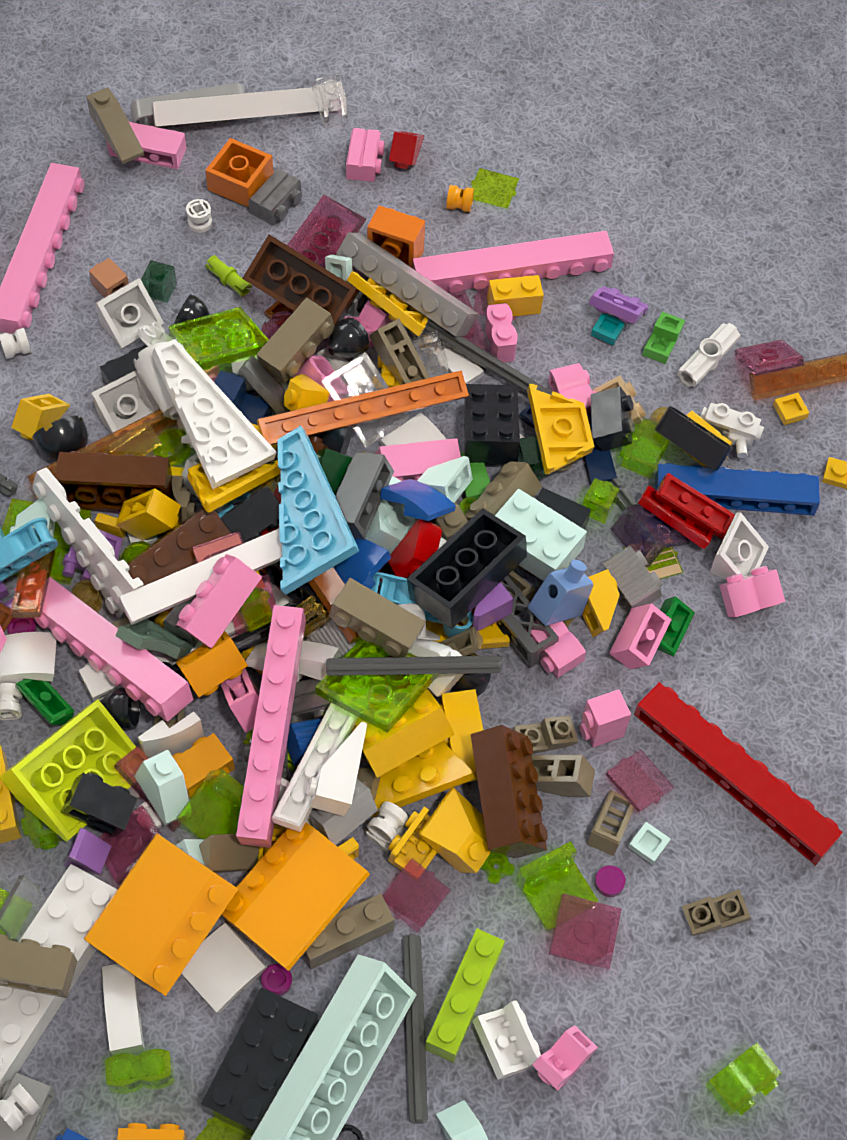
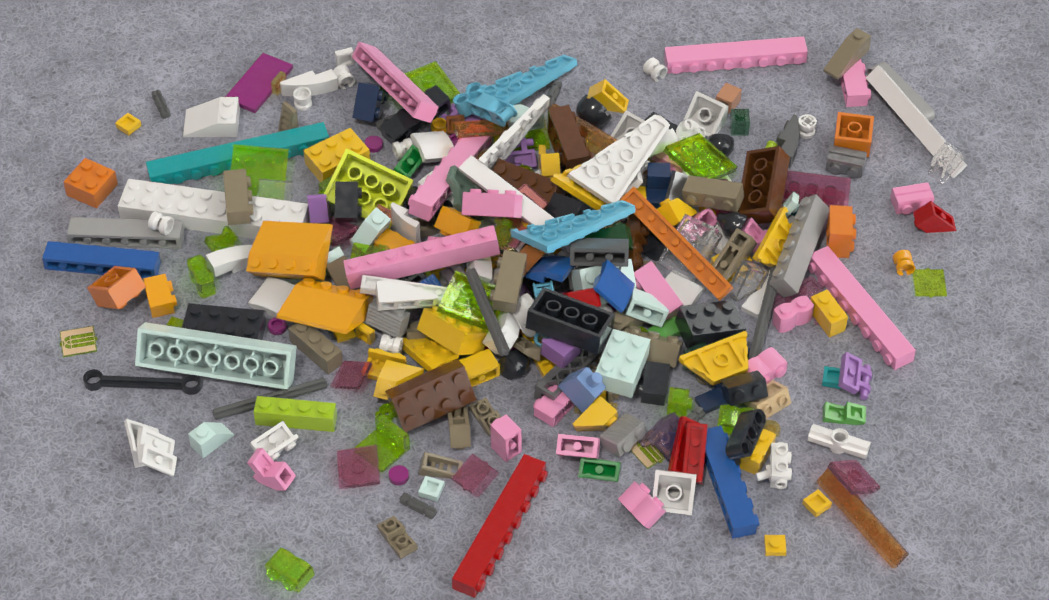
camera: 75 degrees right, 10 degrees down
(76, 1021) = (221, 241): none -> clear neon green bracket
(217, 241) = (789, 138): none -> dark grey slope
(670, 869) = (418, 505): none -> dark grey axle

